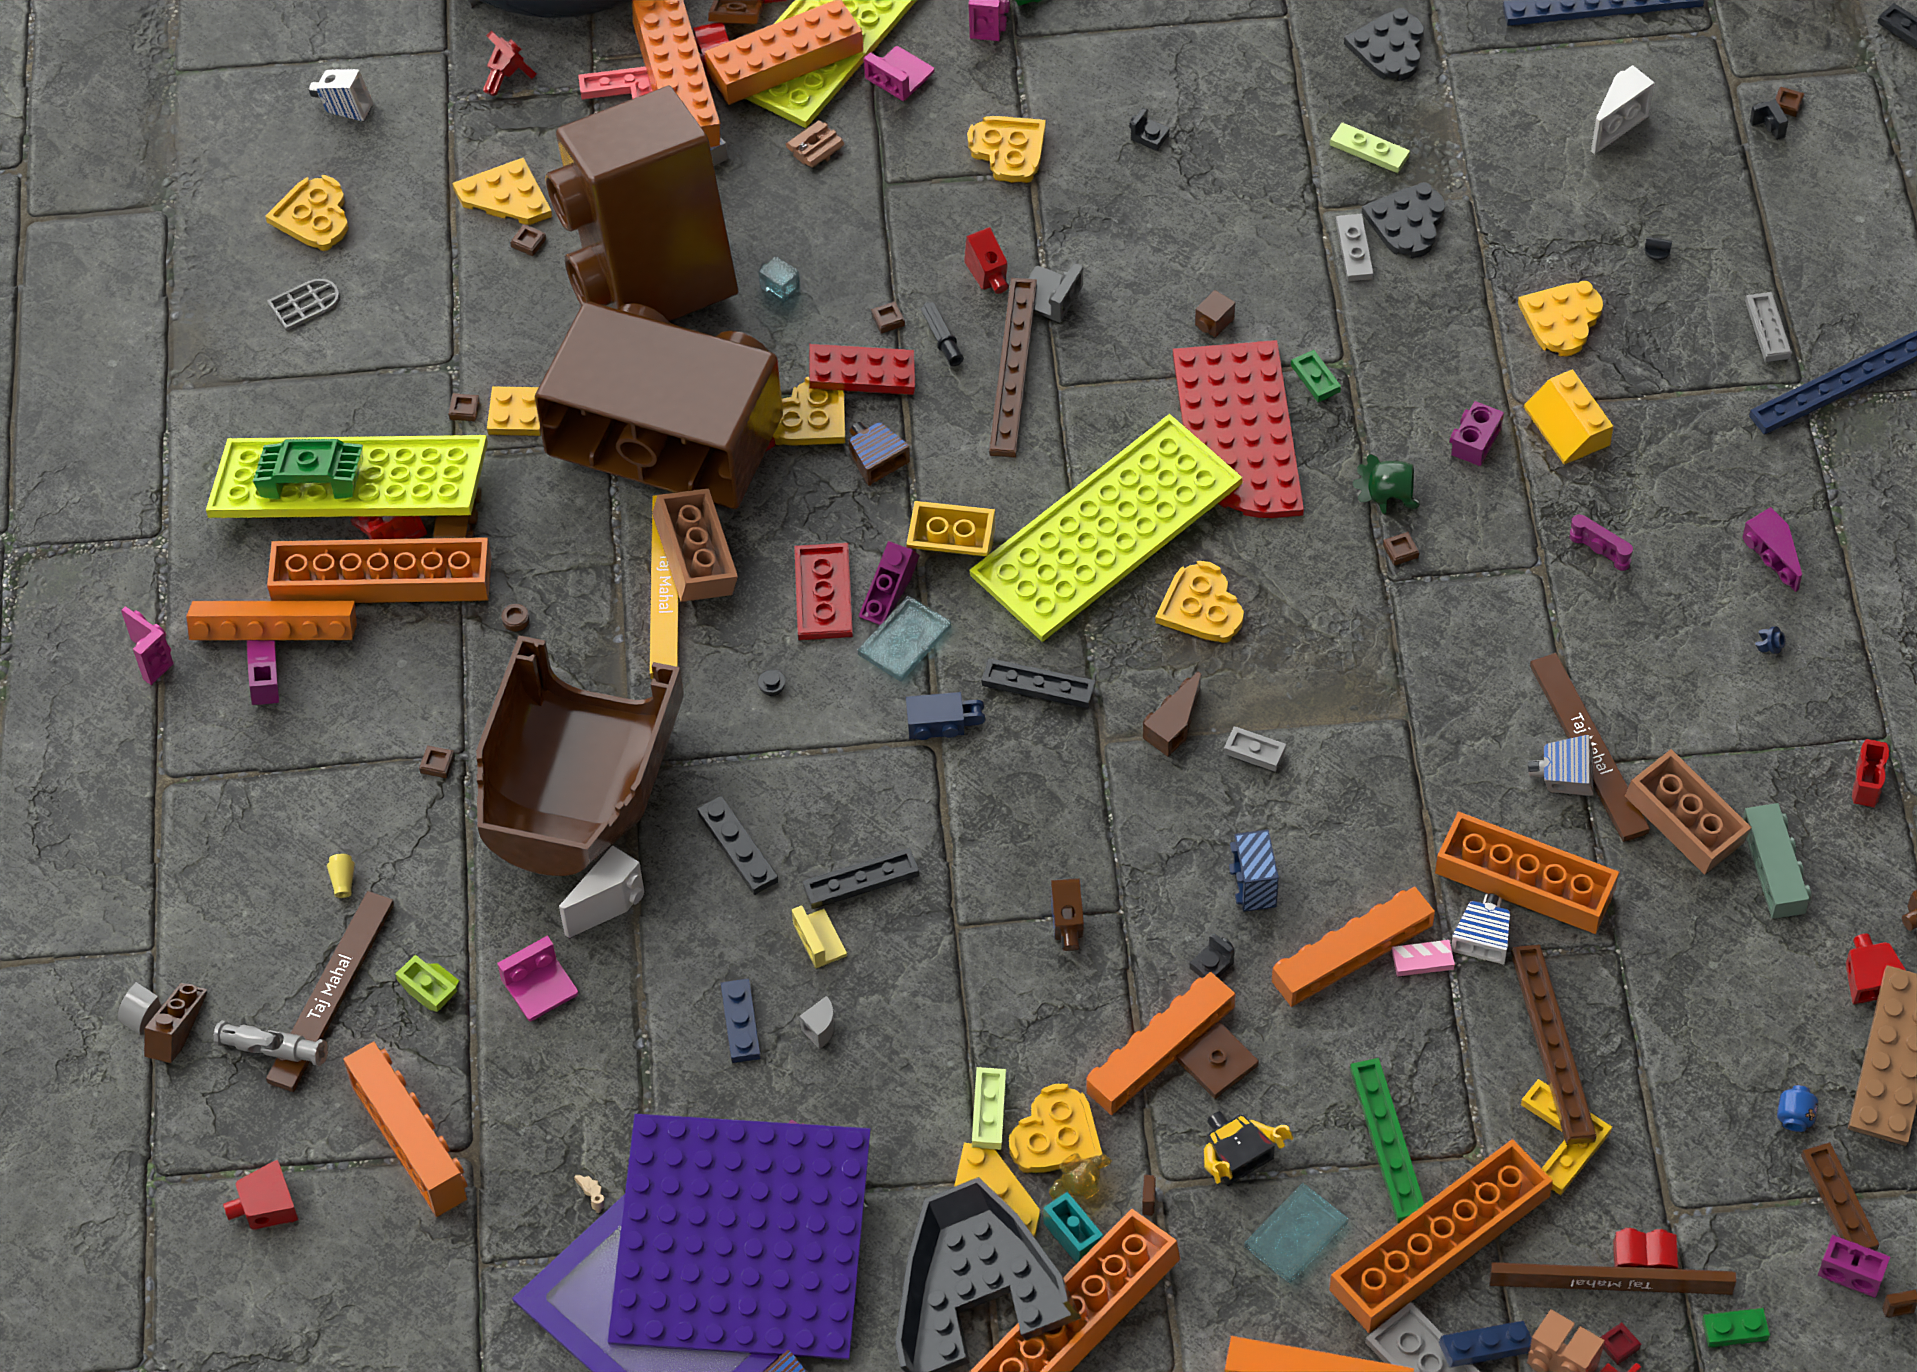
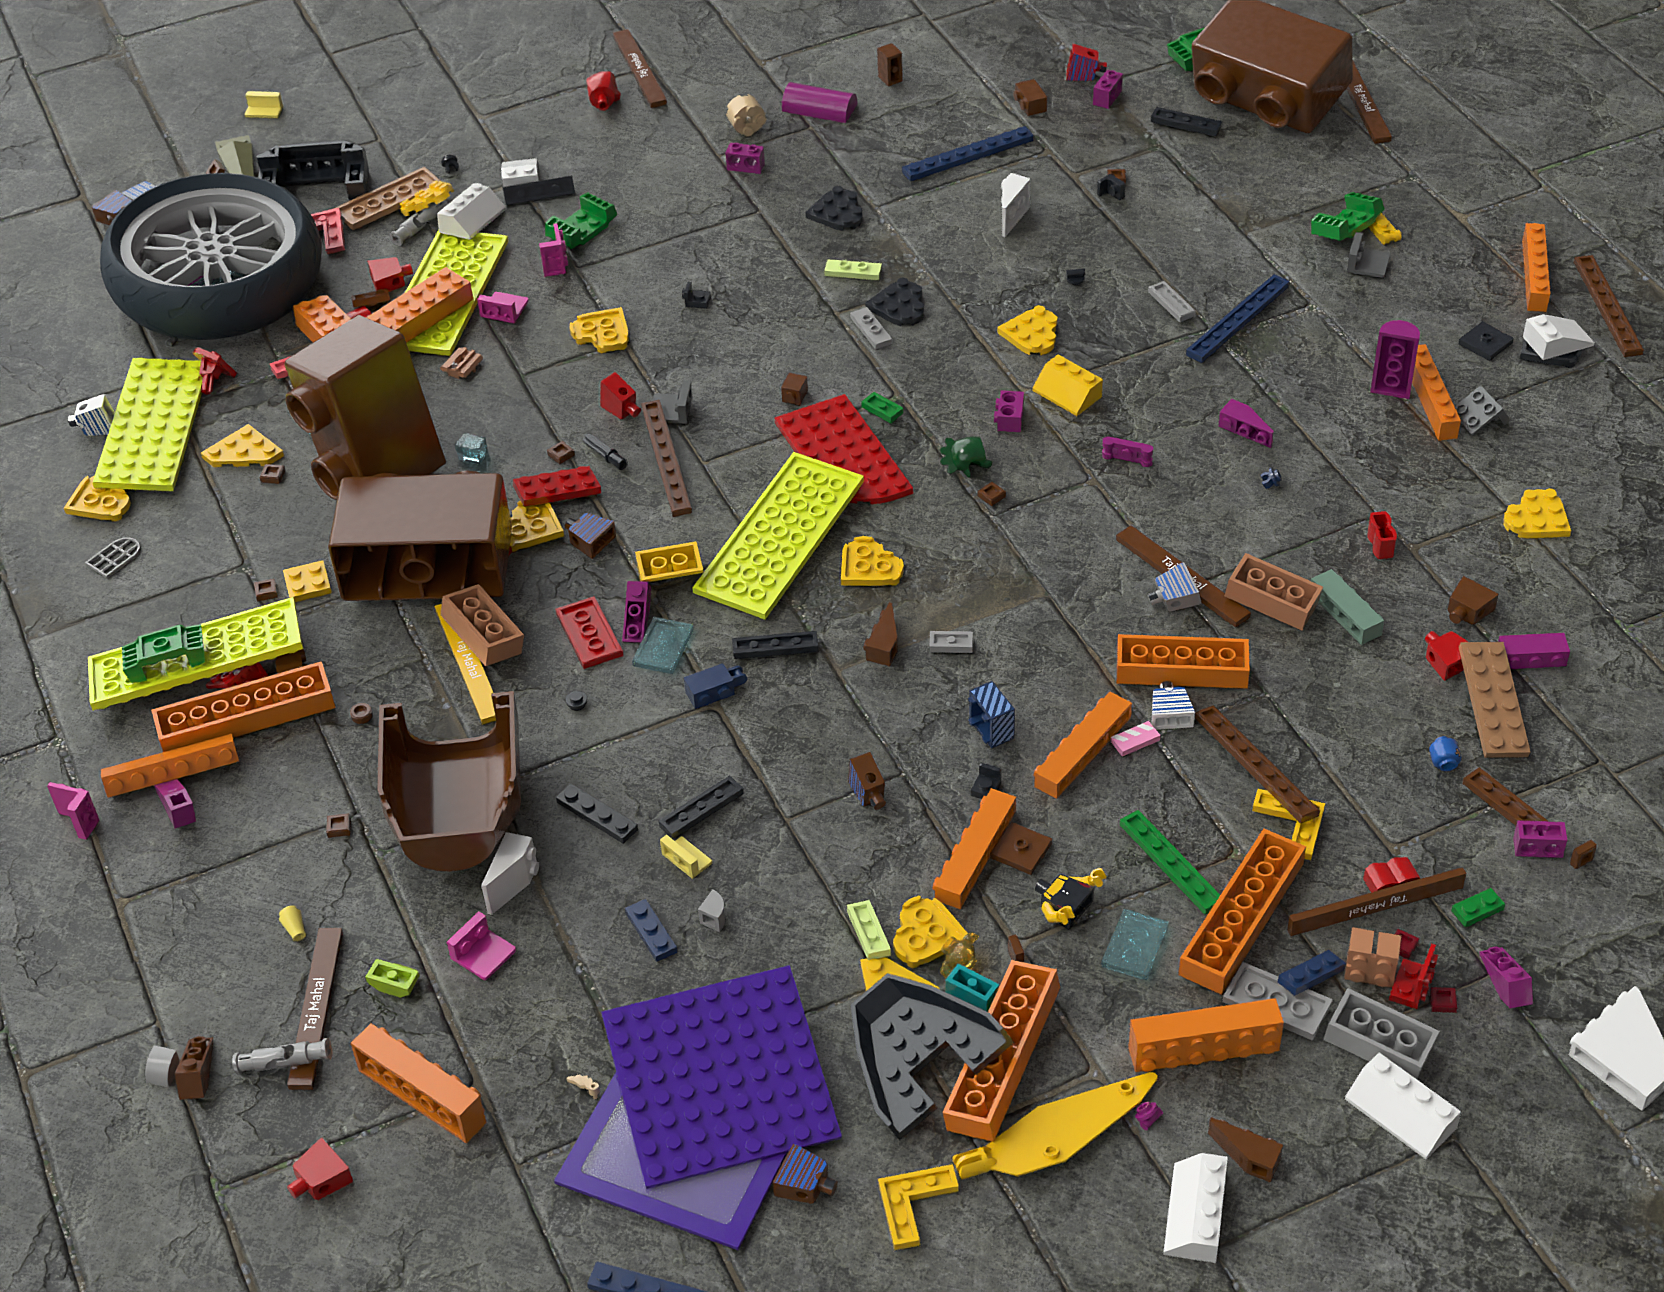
camera: 20 degrees left, 10 degrees down
(406, 124) = (150, 425): none -> neon yellow plate

